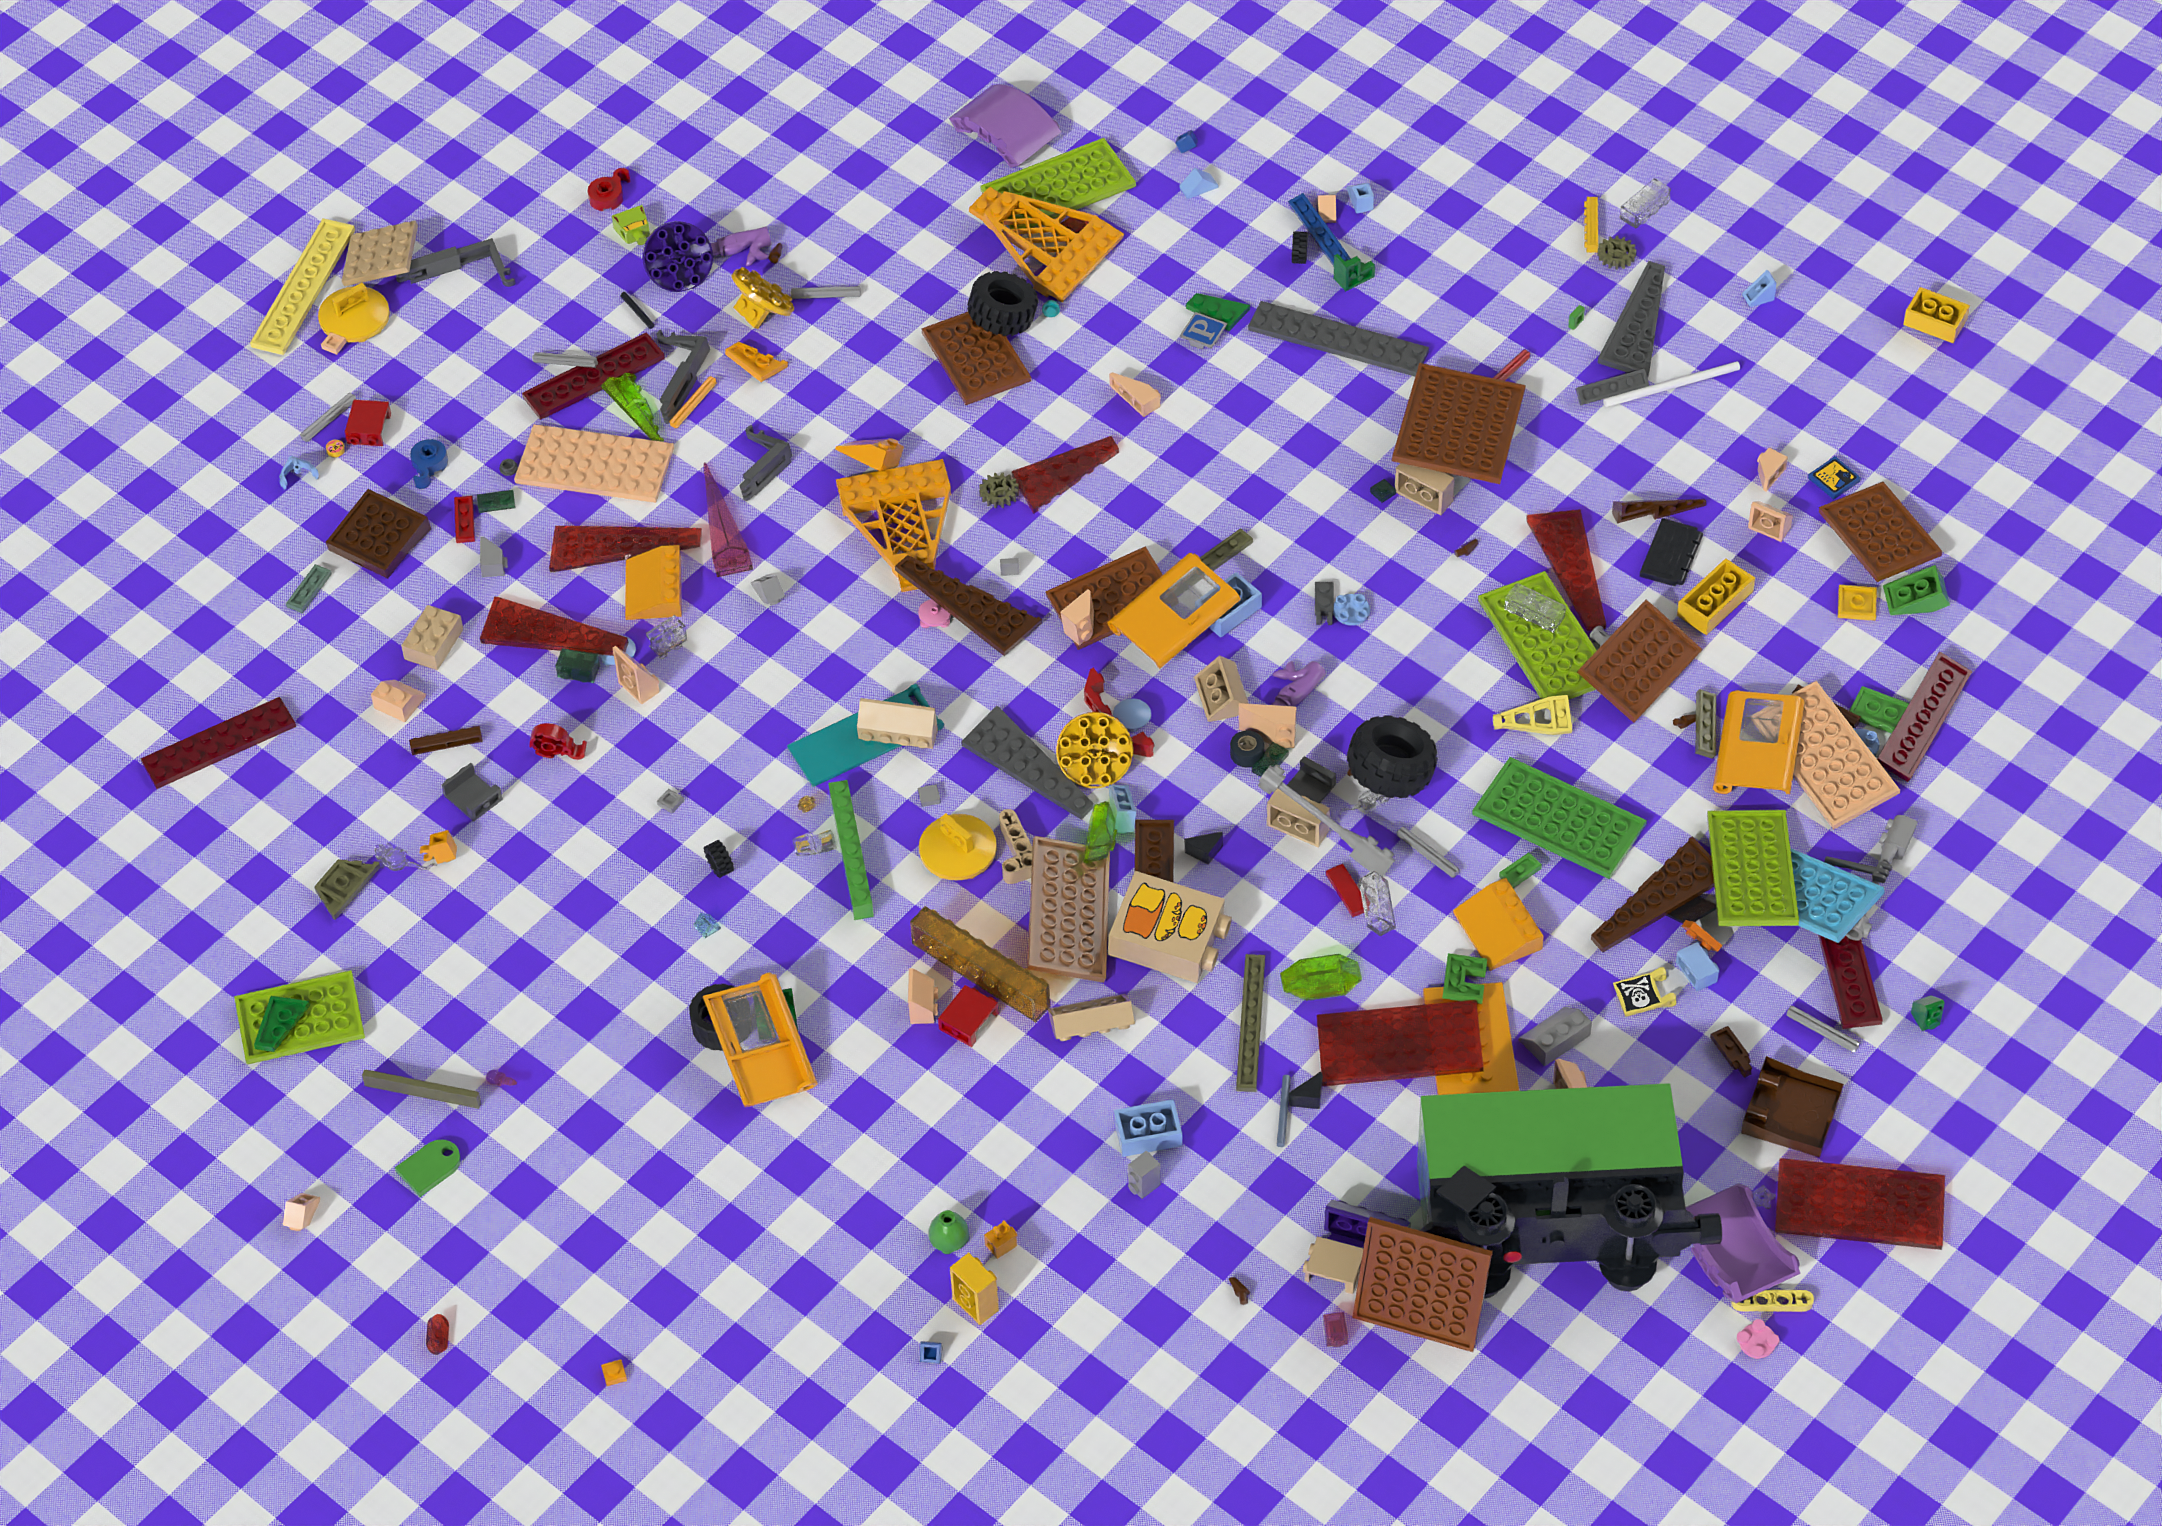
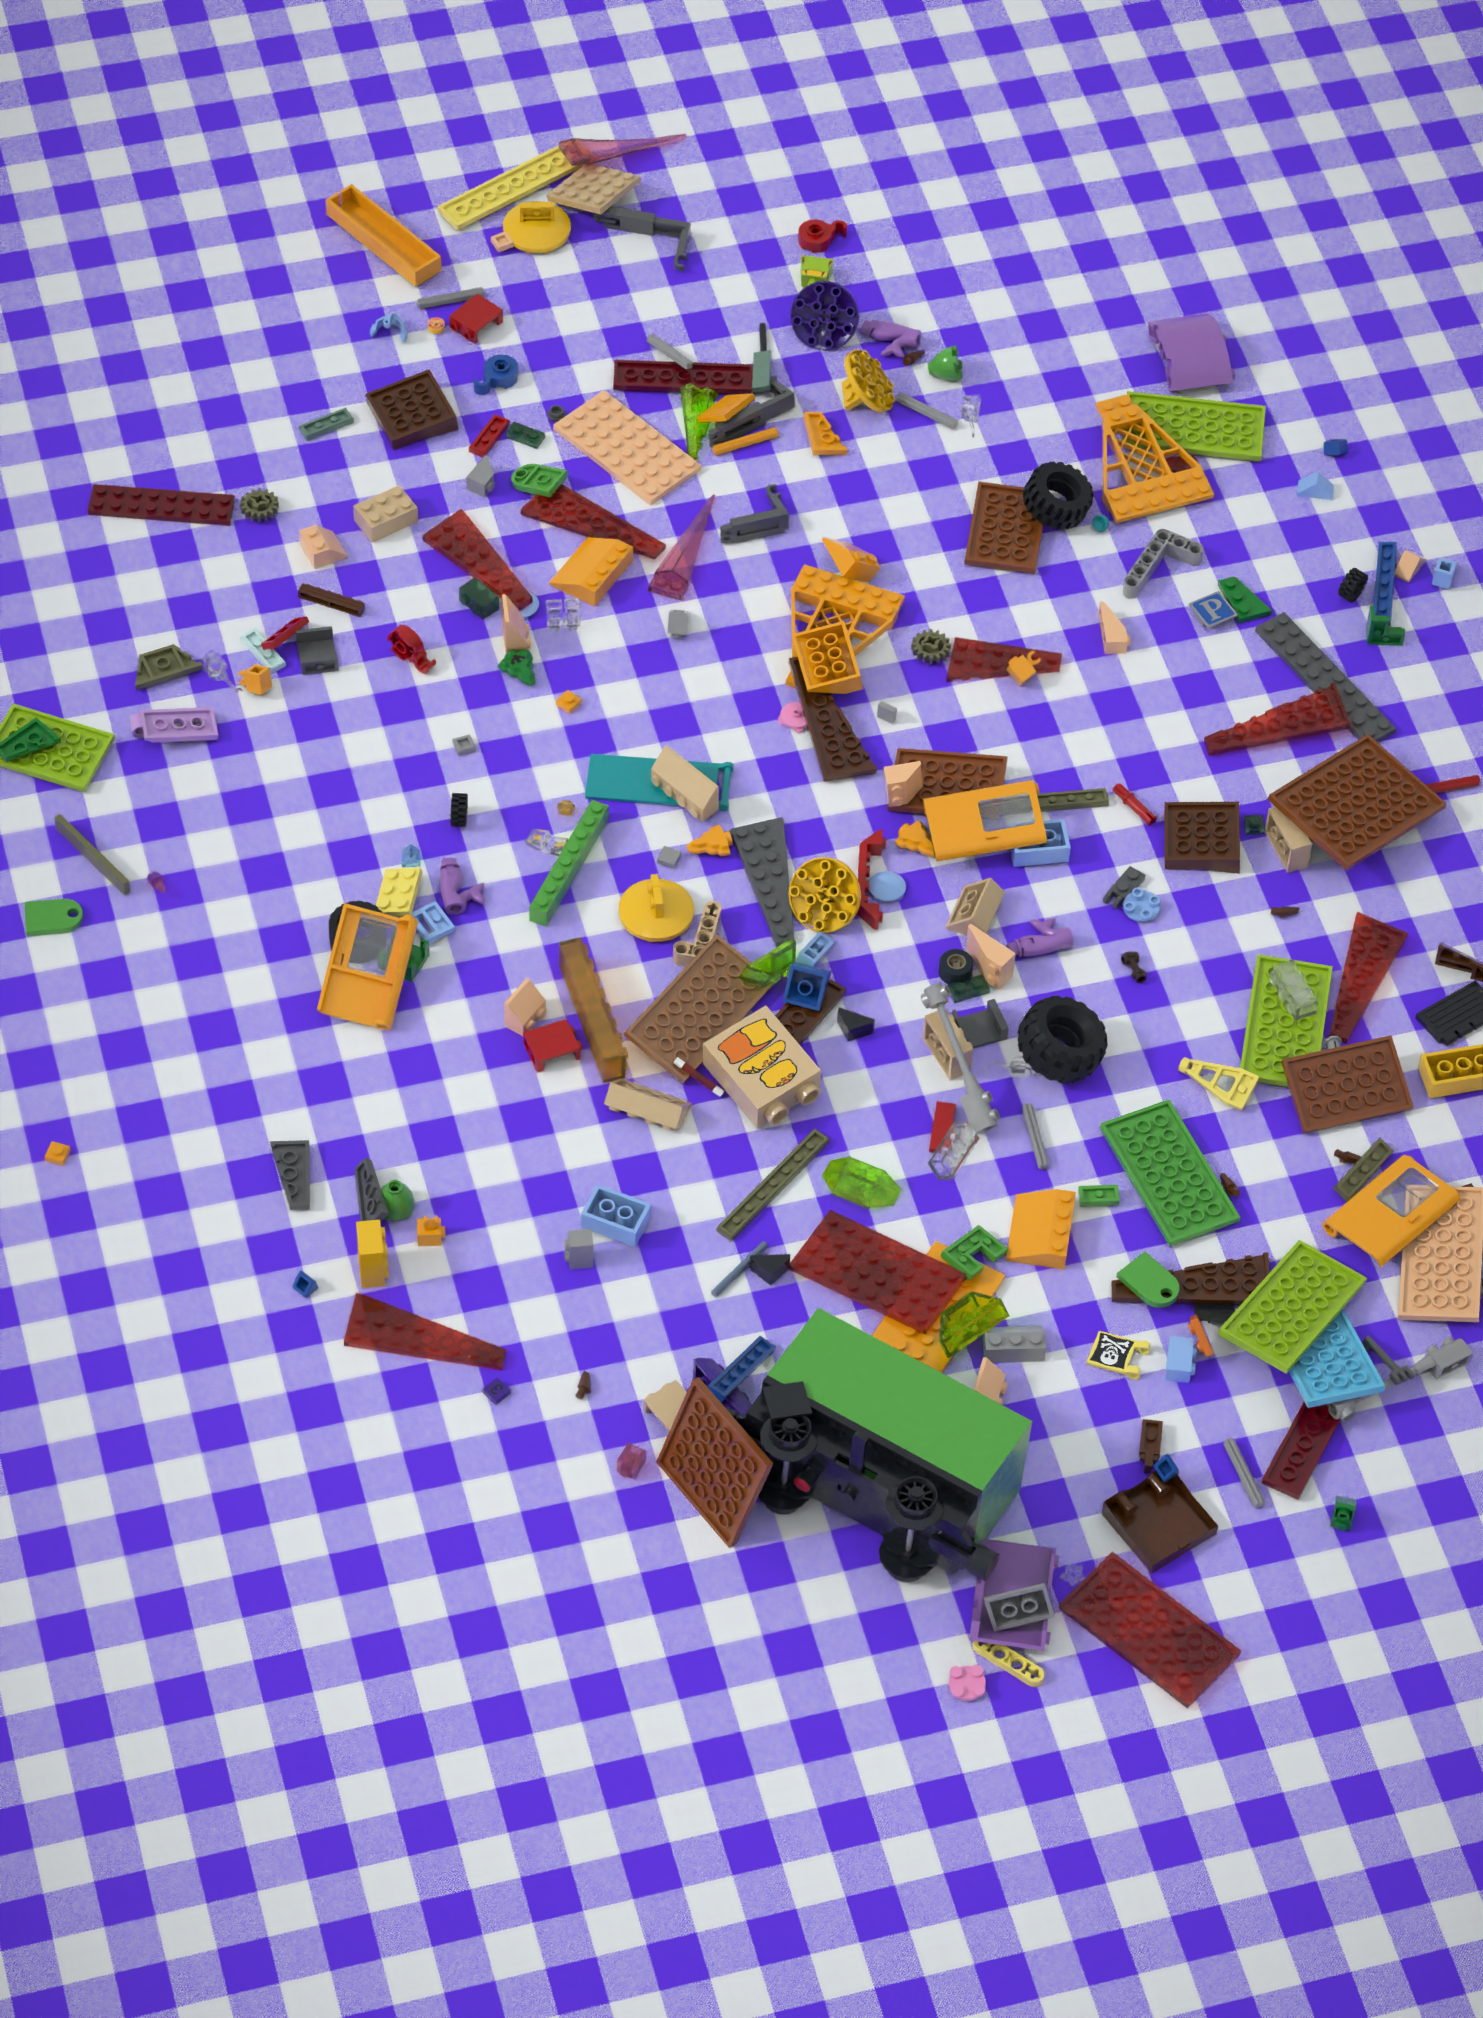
camera: 30 degrees right, 0 degrees up
(223, 393) = (383, 235): none -> light orange piece
(310, 692) = (259, 505): none -> olive gear
(355, 219) = (593, 151): none -> clear pink plate
(389, 940) = (159, 726): none -> lavender hinge
(420, 819) = (267, 658): none -> light aqua tile
(431, 792) = (284, 633): none -> red tile
(542, 533) = (538, 479): none -> bright green tile
(657, 381) = (726, 408): none -> light orange tile
(659, 333) = (762, 371): none -> sand green tile
(662, 704) = (519, 666): none -> green rock
(724, 960) = (399, 891): none -> light yellow plate
(729, 711) = (568, 701): none -> light orange plate
(762, 927) = (450, 883): none -> medium lavender piece
(778, 965) = (436, 921): none -> light blue plate
(812, 244) = (946, 364): none -> bright green piece
(836, 1257) = (294, 1171): none -> dark grey wing
(864, 272) = (971, 409): none -> clear animal
(929, 1243) = (370, 1197): none -> dark grey wing
(931, 547) = (827, 659): none -> light orange slope
(956, 760) = (712, 842): none -> light orange rock
(1044, 1343) = (393, 1330): none -> clear red wing
(1092, 466) = (1022, 668): none -> light orange brick
(1115, 968) = (698, 1076): none -> clear red bar
(1117, 297) = (1162, 543): none -> light grey beam
(1124, 660) = (915, 838): none -> light orange rock
(1143, 836) = (806, 986): none -> blue slope
(1171, 1341) = (496, 1391): none -> dark purple tile
(1275, 528) = (1129, 799): none -> red axle
(1350, 380) = (1305, 717): none -> clear red wing
(1352, 523) = (1202, 836): none -> reddish brown piece
(1366, 1189) = (741, 1368): none -> blue plate
(1380, 658) = (1132, 958): none -> dark brown bar
(1516, 1036) = (969, 1320): none -> clear neon green wedge
(1614, 799) = (1230, 1187): none -> reddish brown bar
(1623, 916) = (1149, 1281): none -> bright green tile
(1755, 1249) = (1020, 1607): none -> light grey slope
(1770, 1061) = (1166, 1468): none -> blue slope

